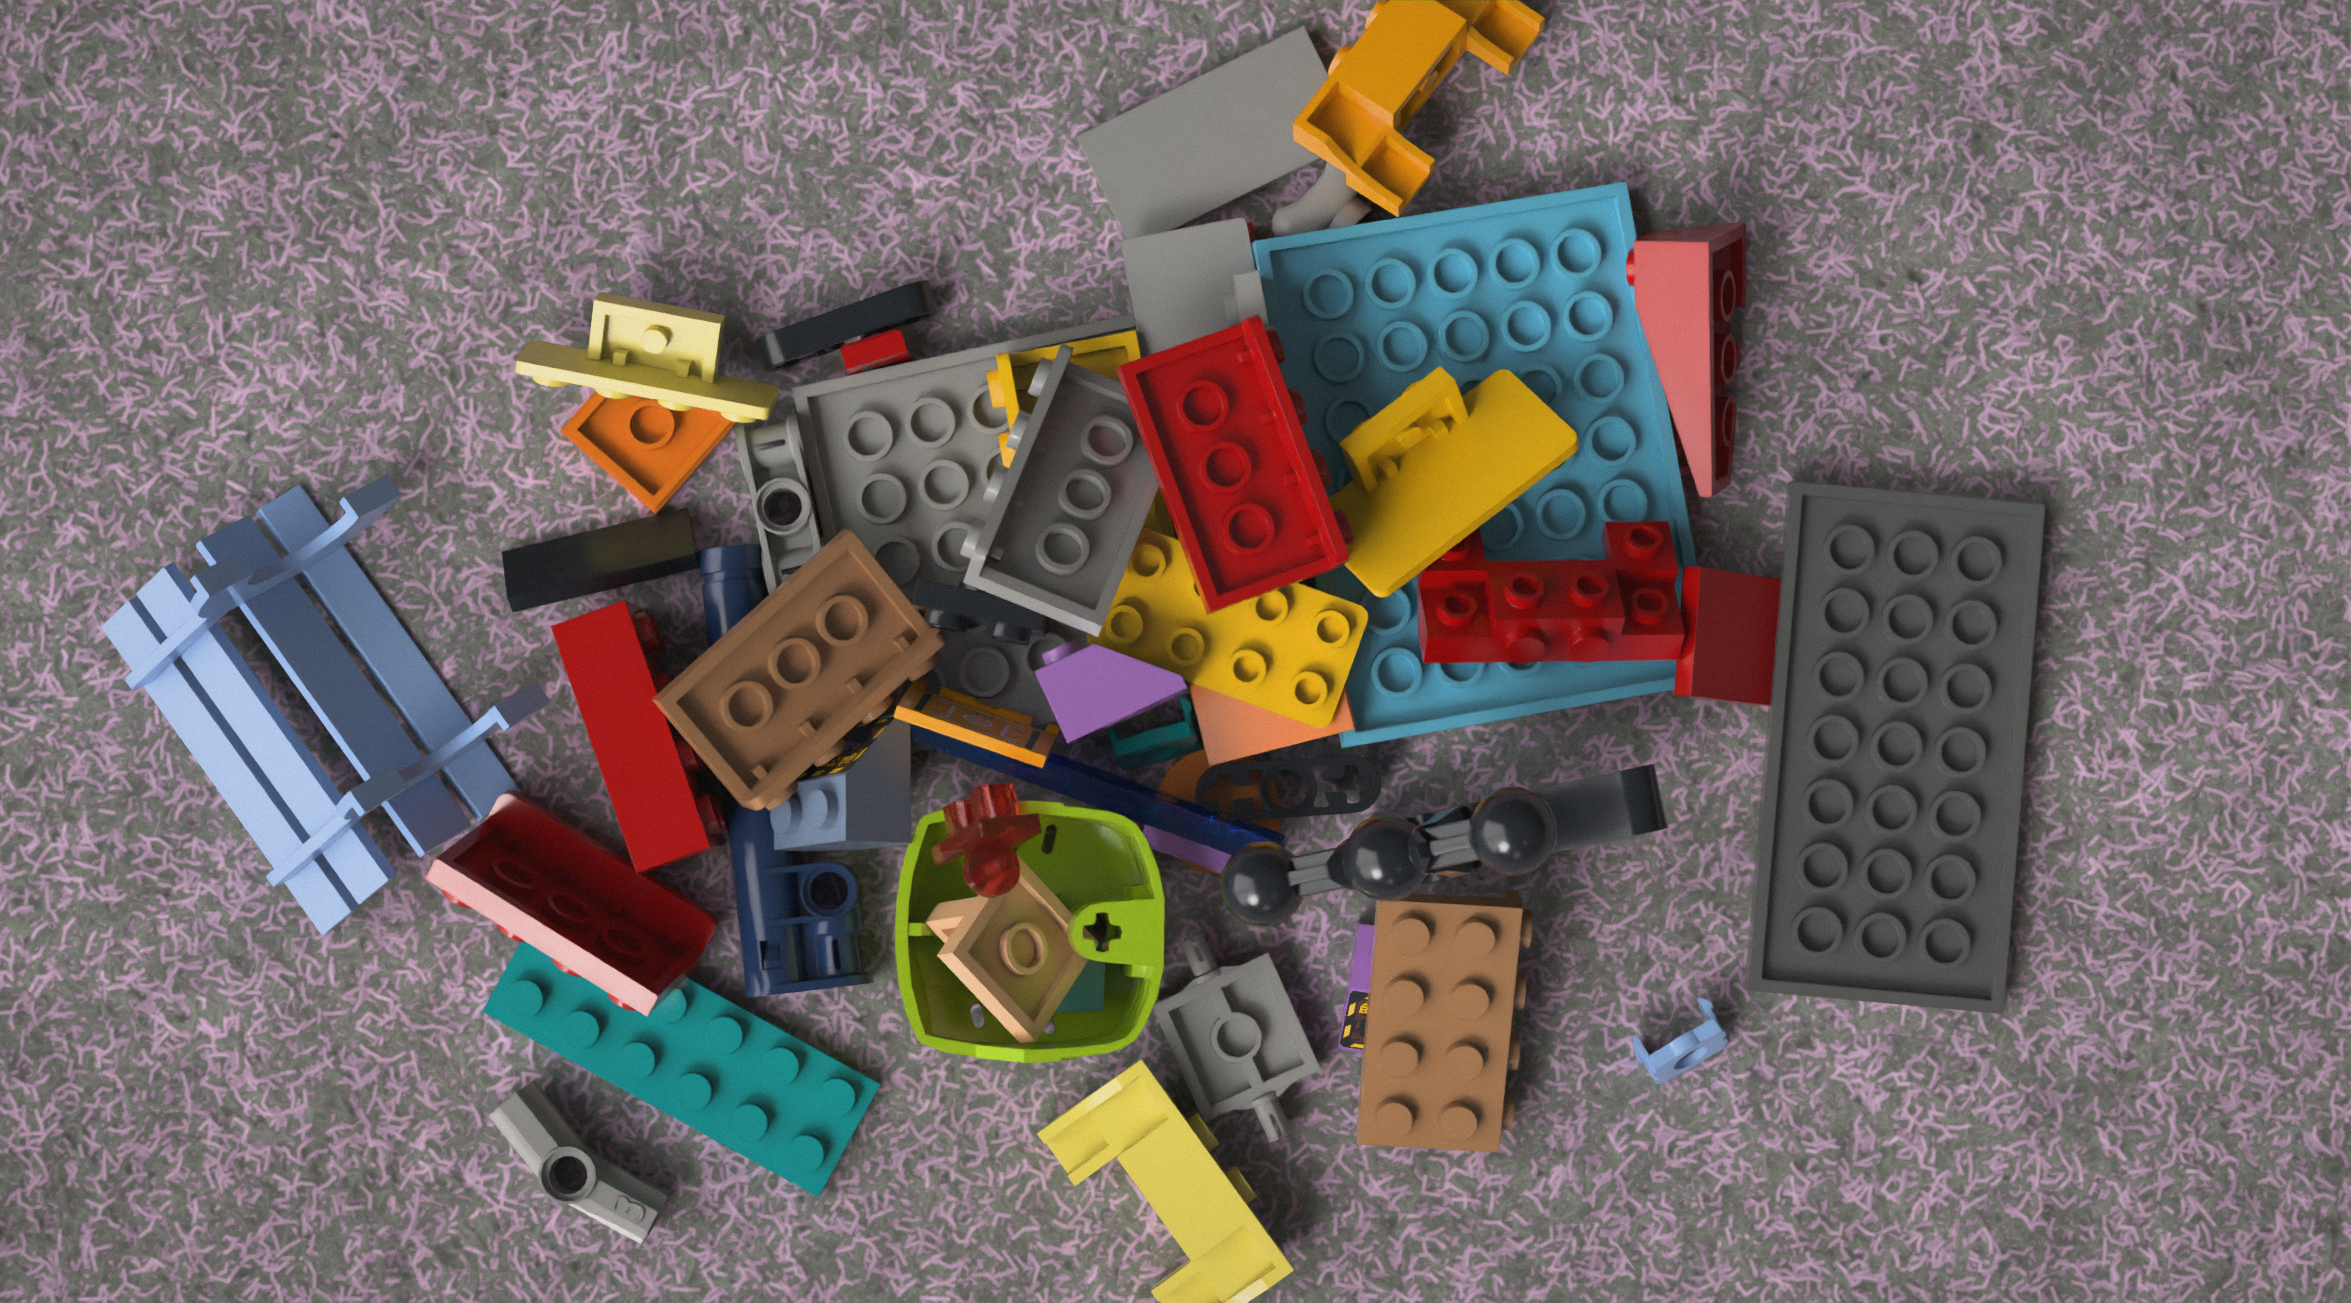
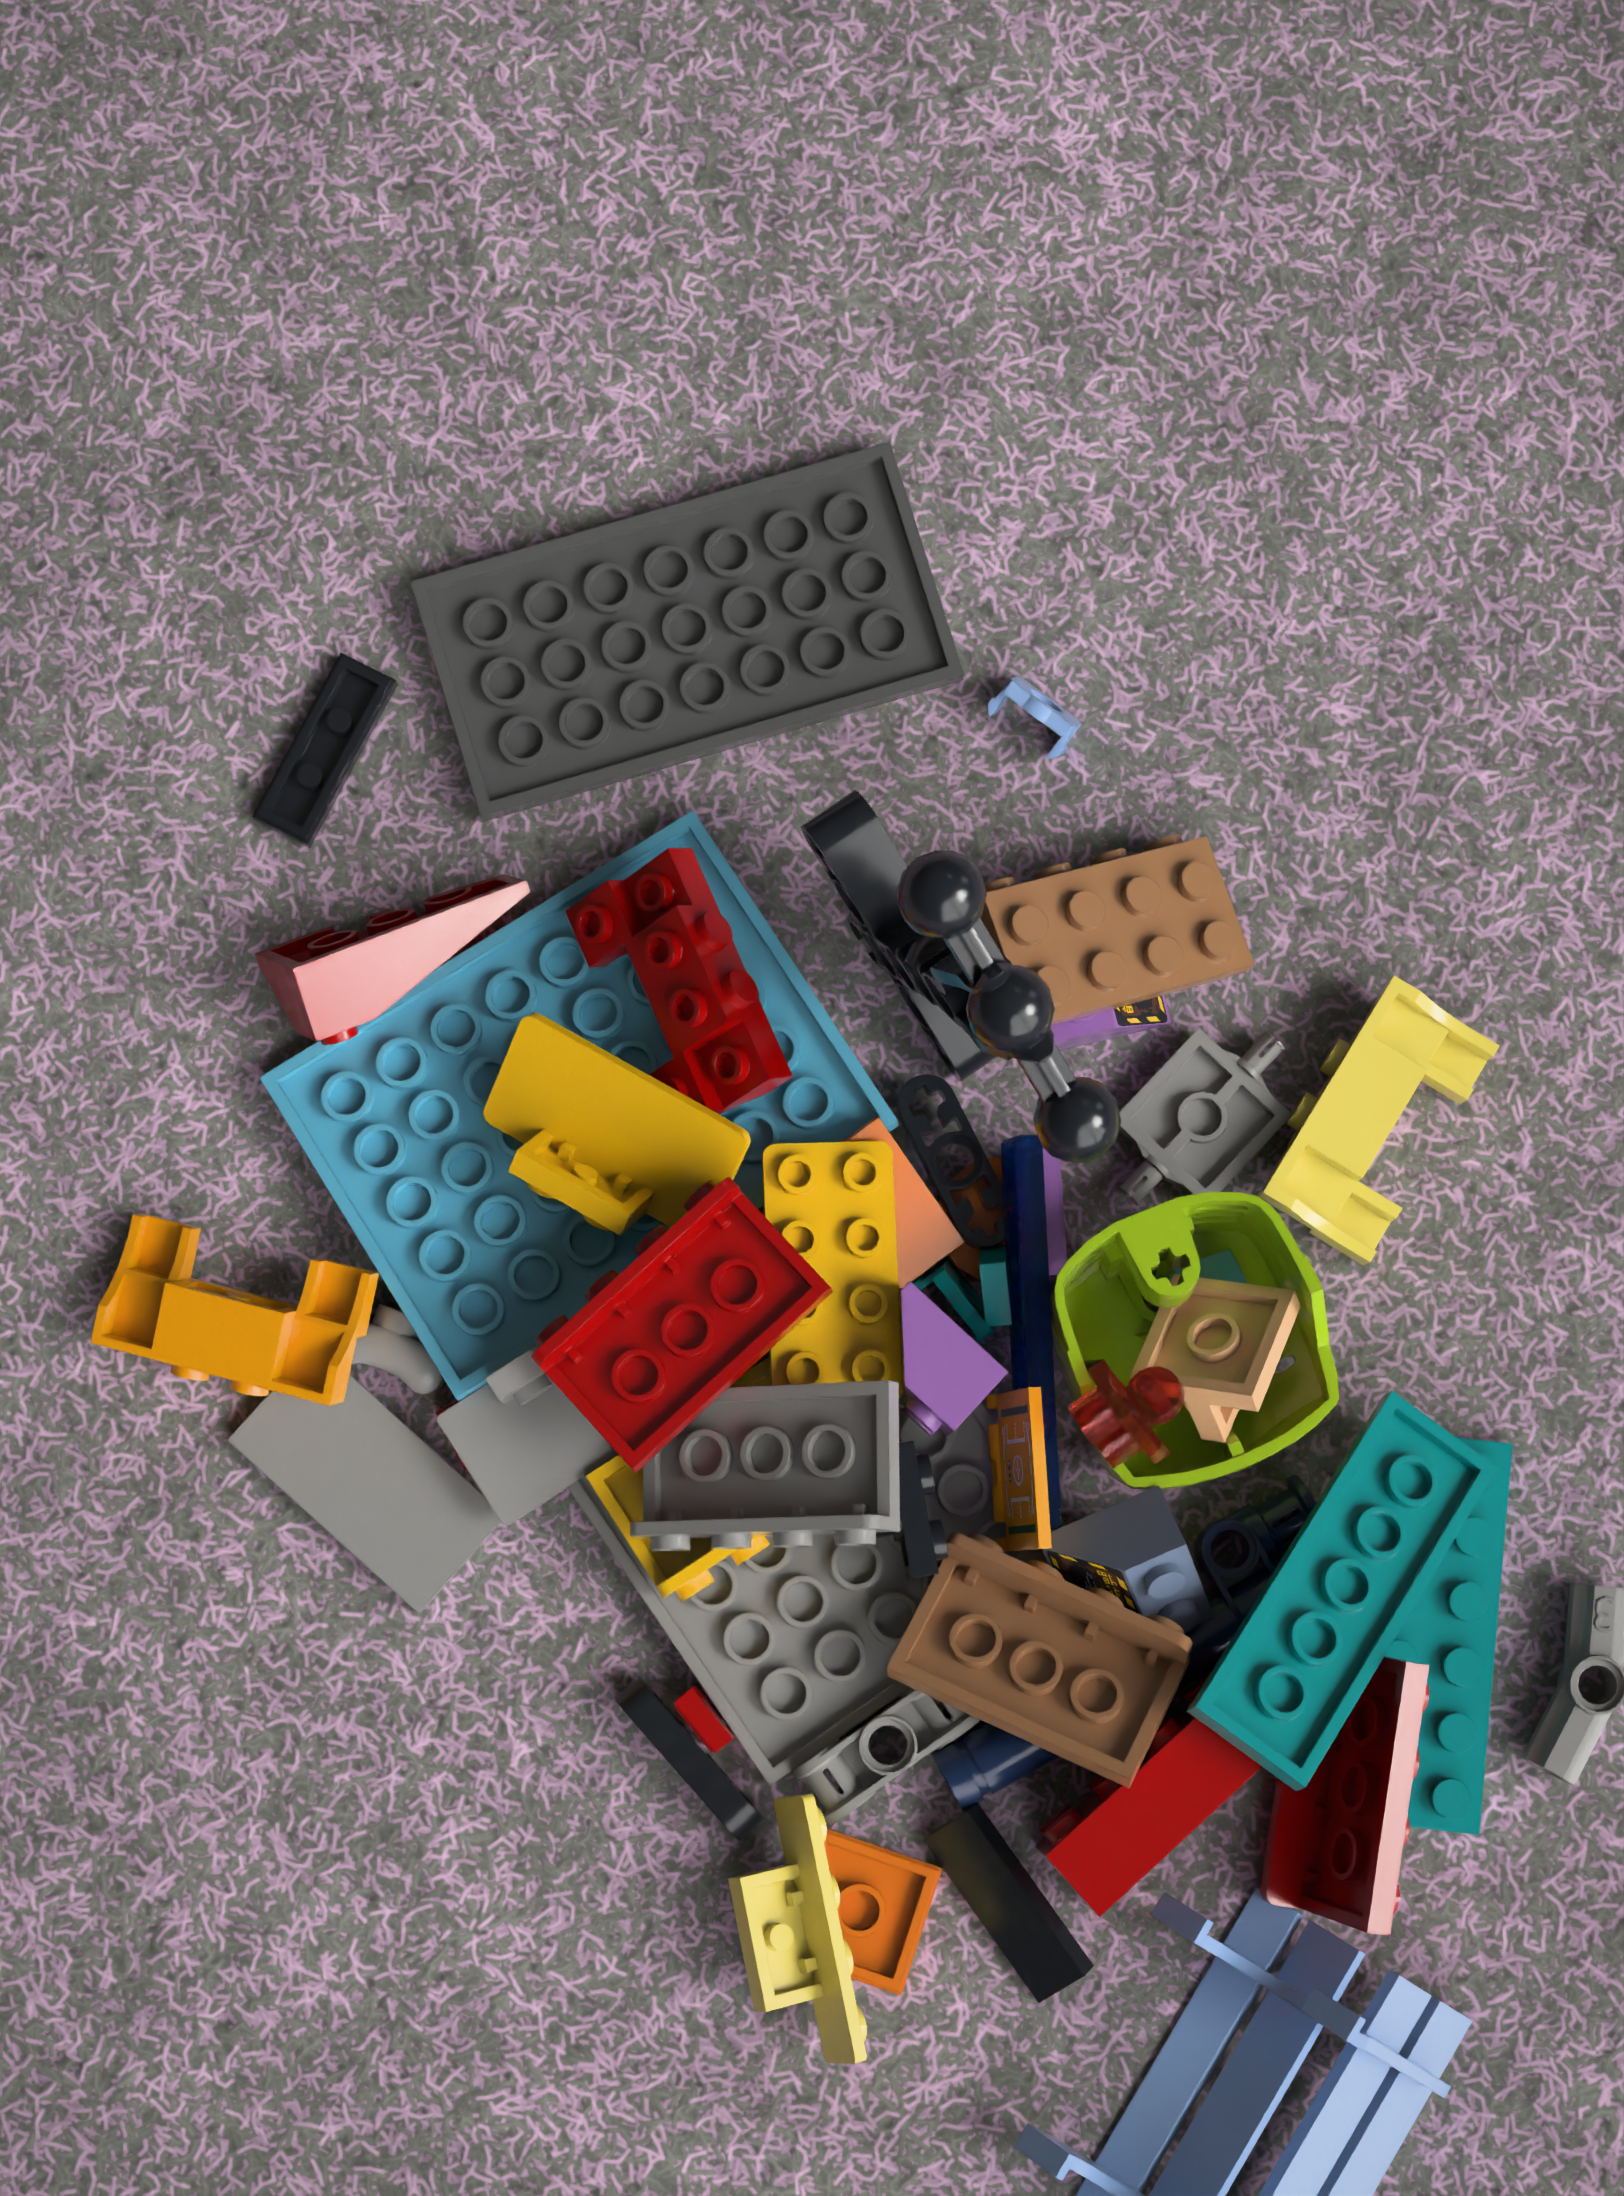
camera: 115 degrees left, 5 degrees down
(747, 972) = (1342, 1591): none -> teal plate
(1157, 774) = (995, 1286): none -> teal tile
(1727, 636) = (648, 813): red tile -> none
(1915, 364) = (325, 750): none -> black tile

